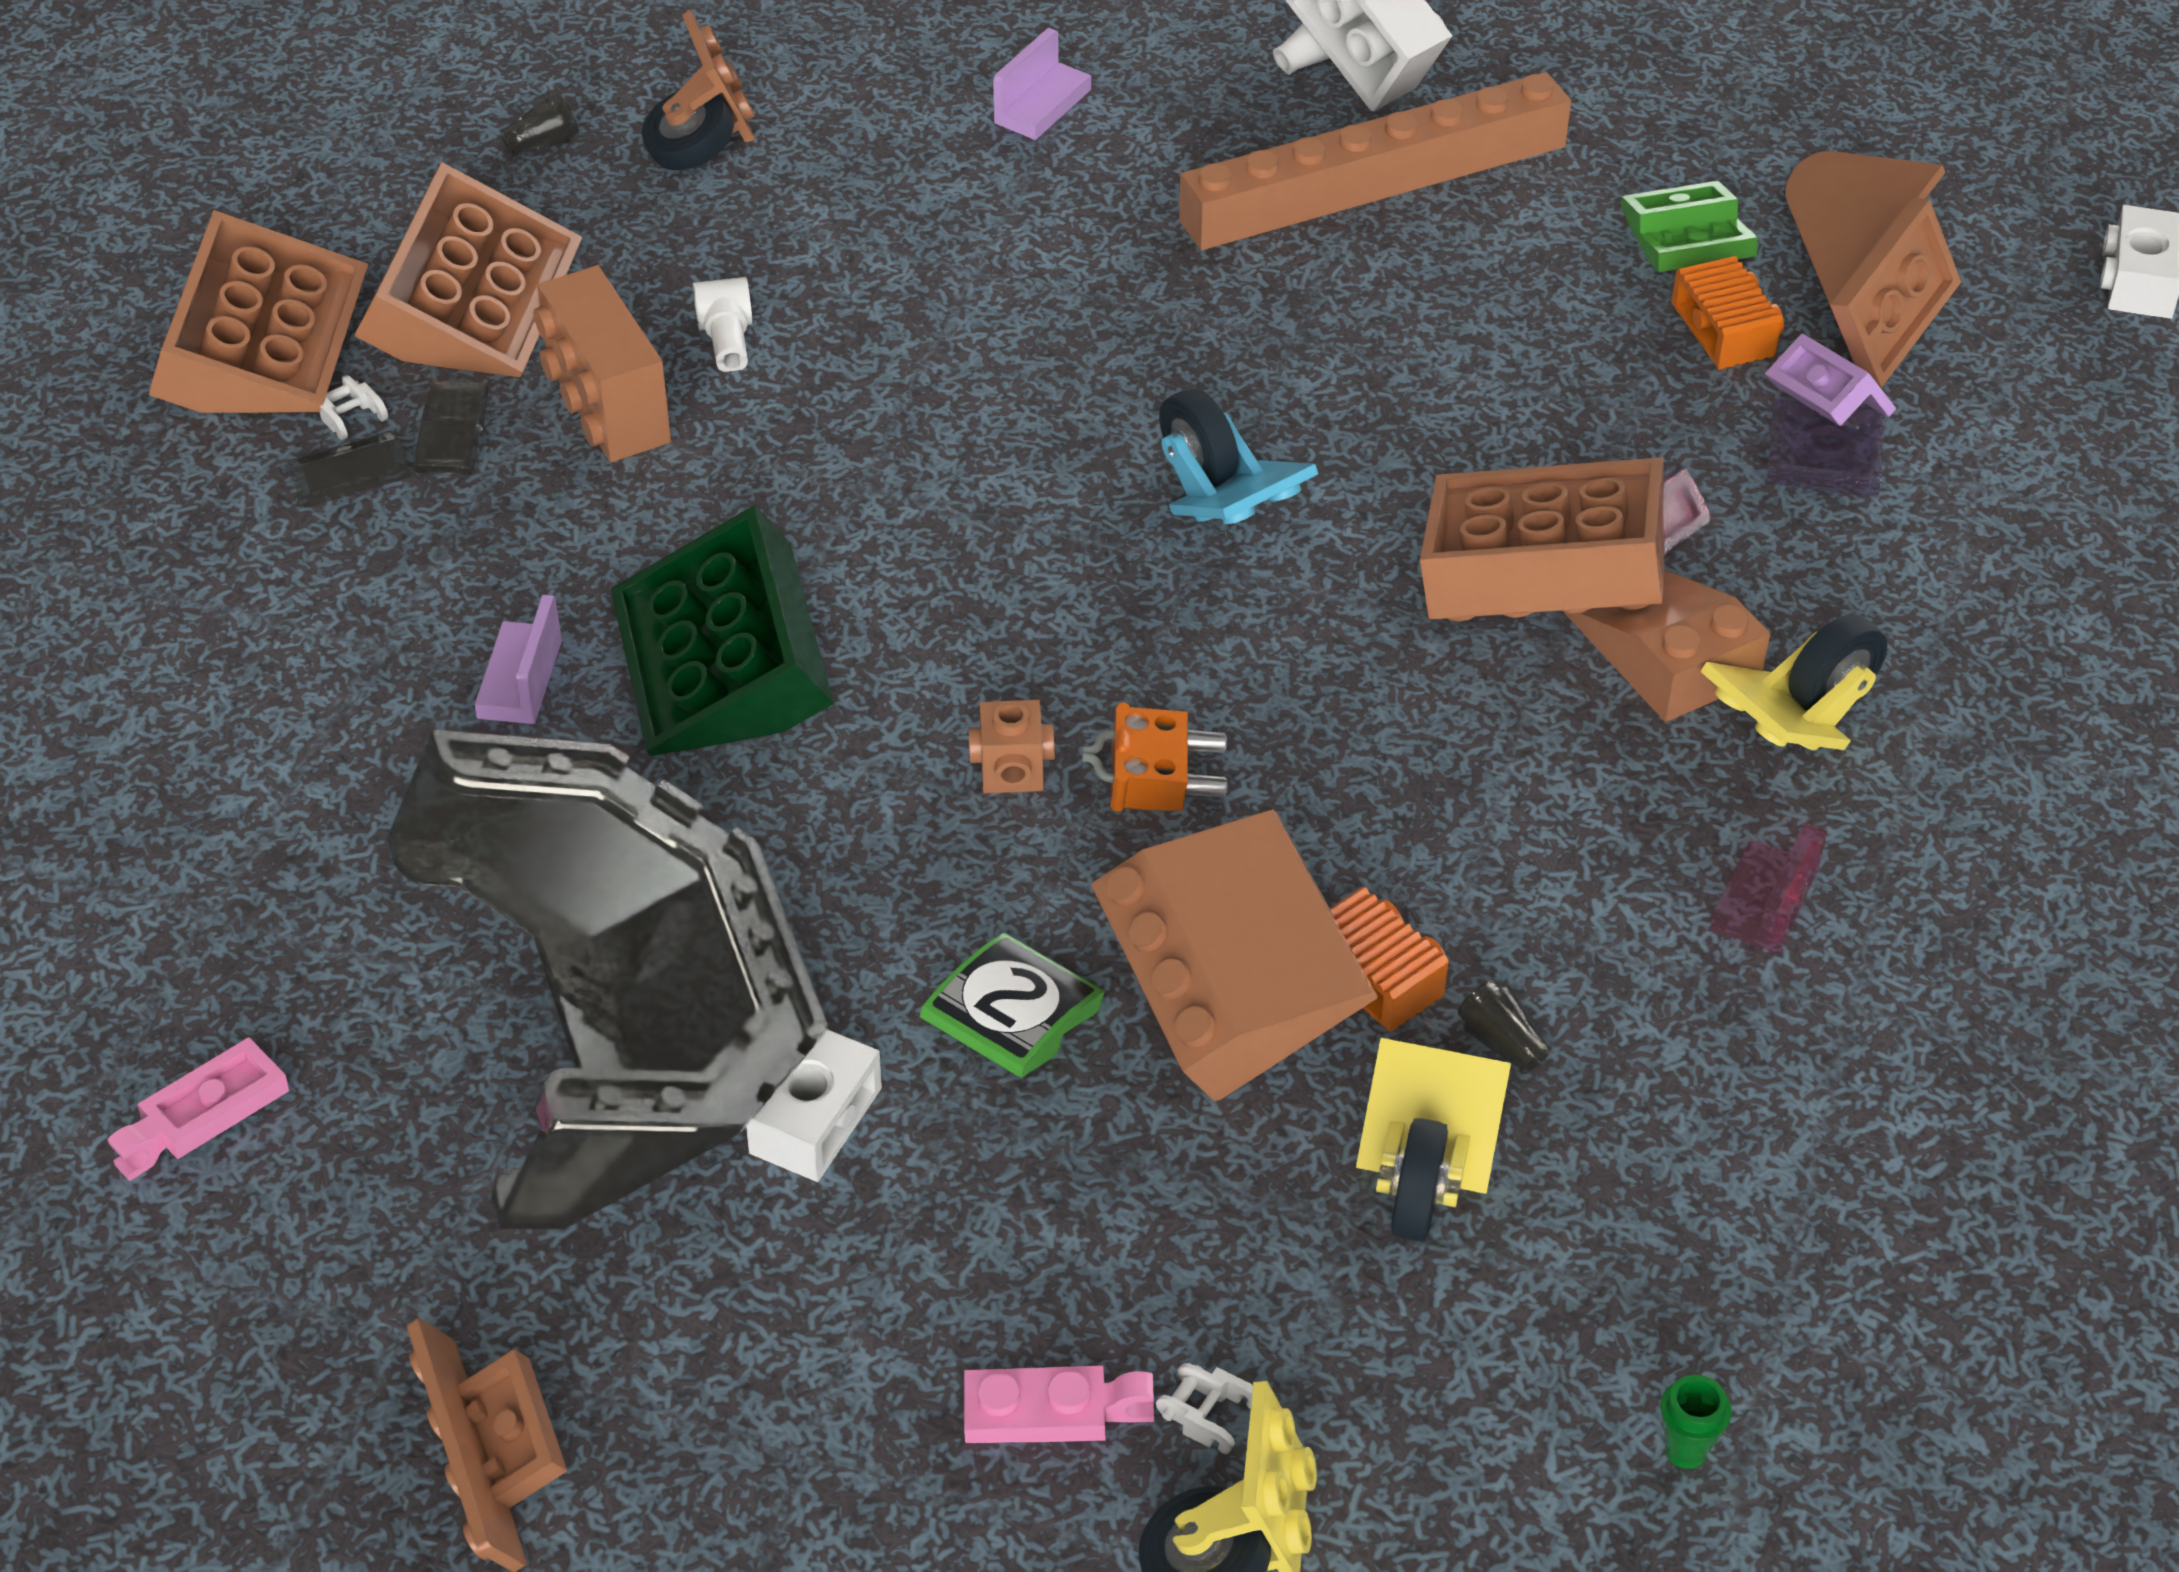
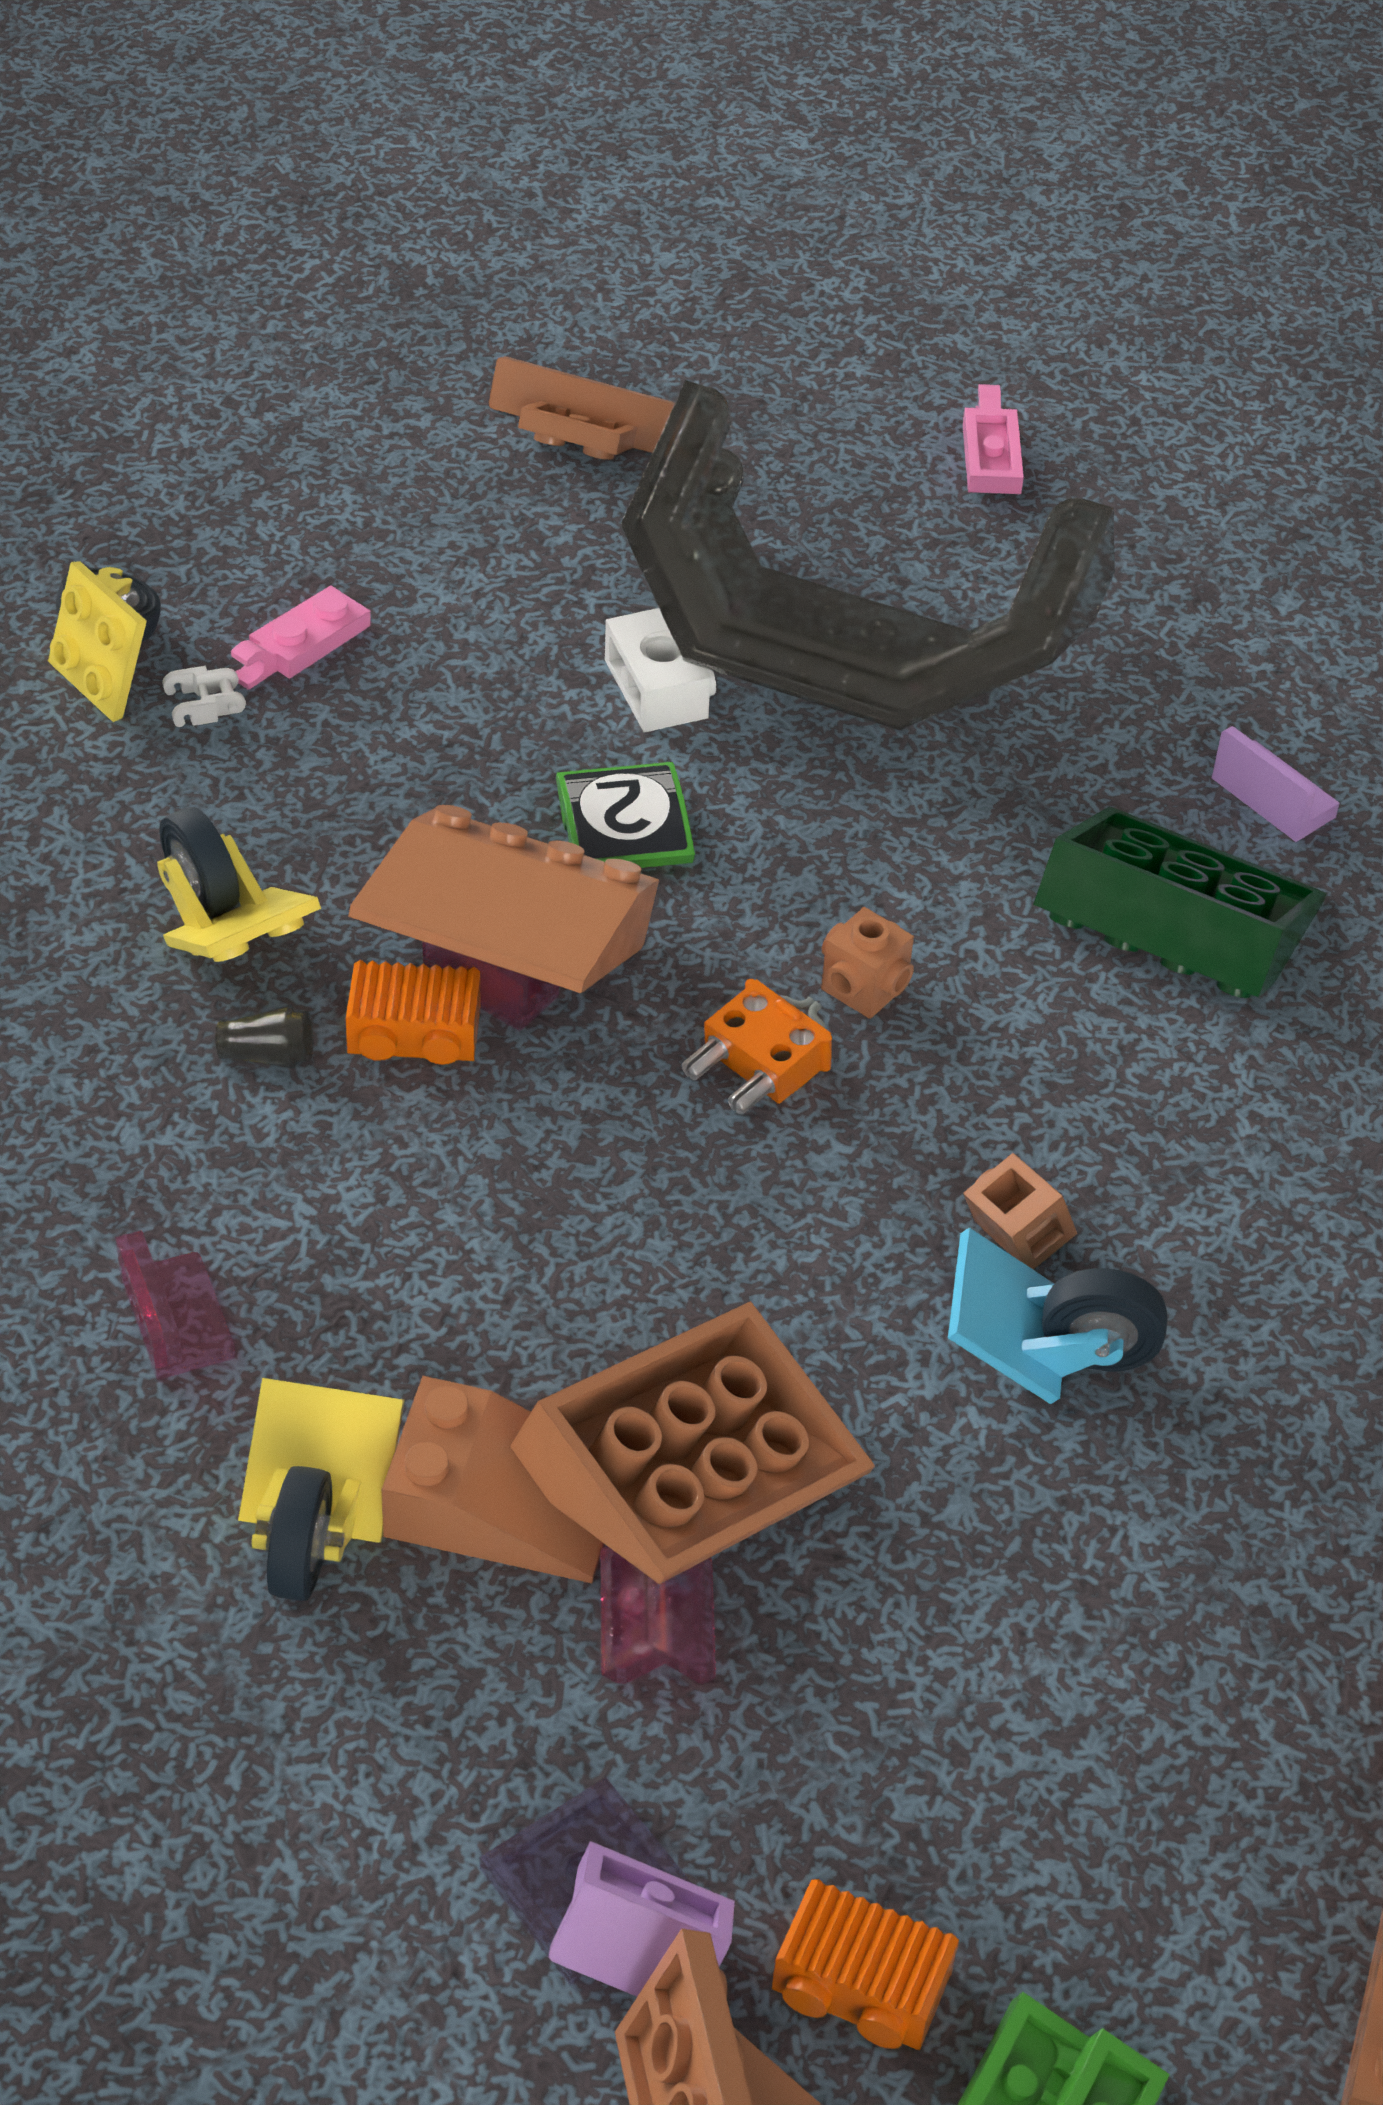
camera: 130 degrees right, 0 degrees up
(1143, 551) = (1020, 1211): none -> nougat brick

